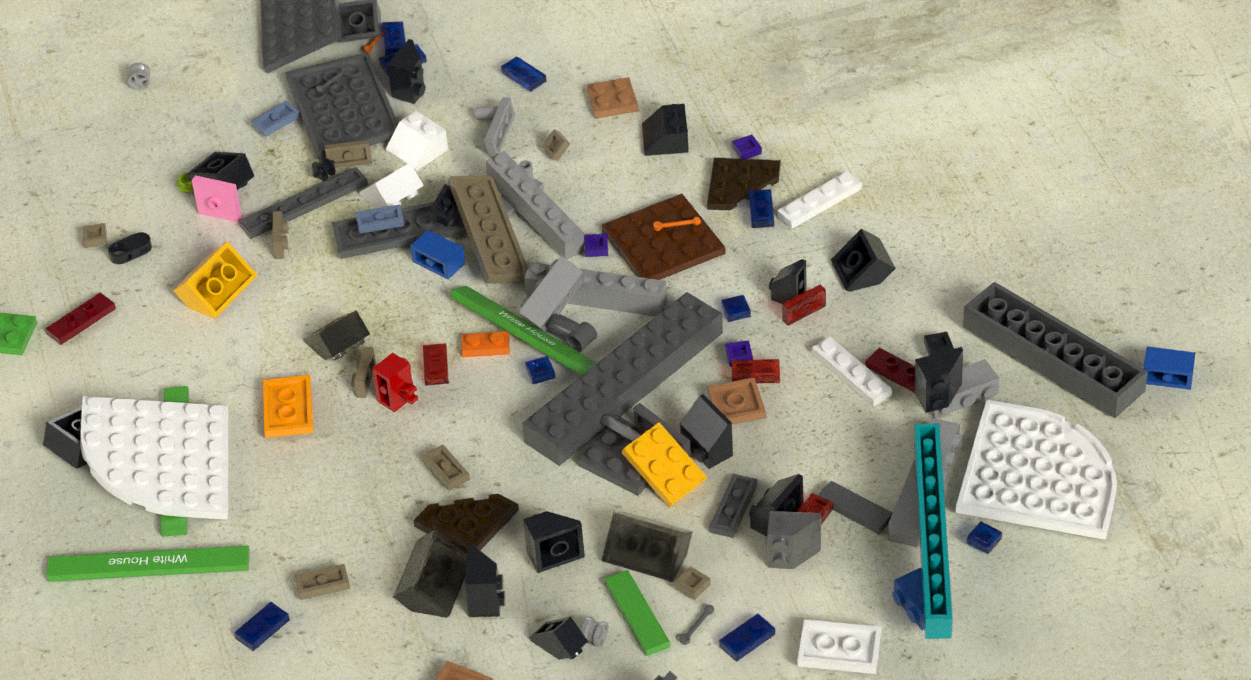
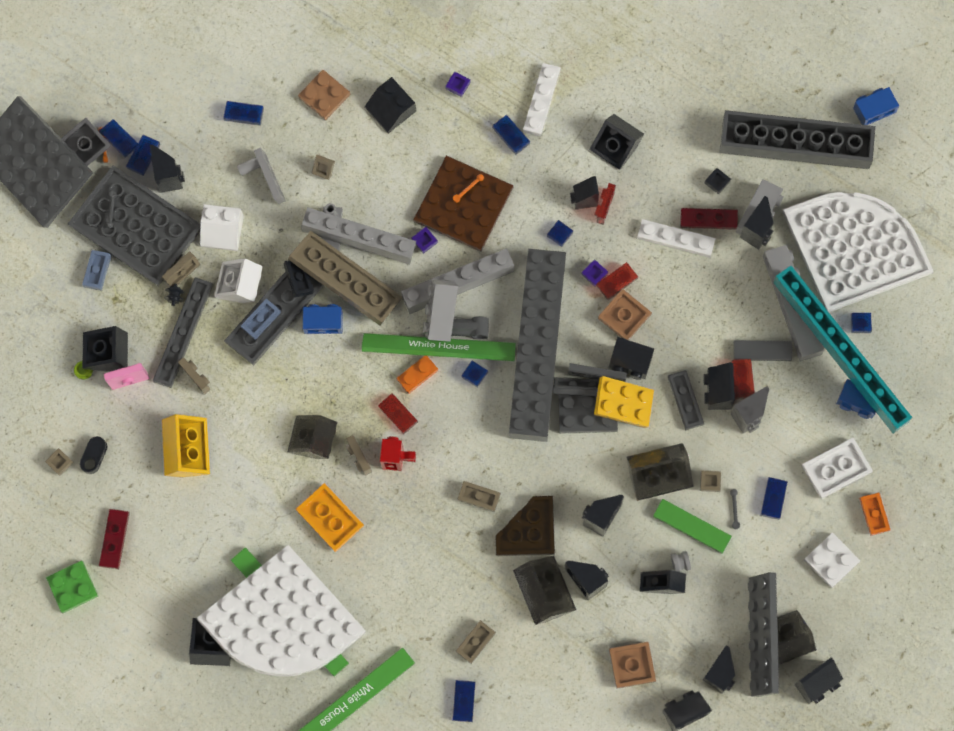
camera: 35 degrees left, 30 degrees up
(736, 177) = (474, 116): dark brown plate -> none

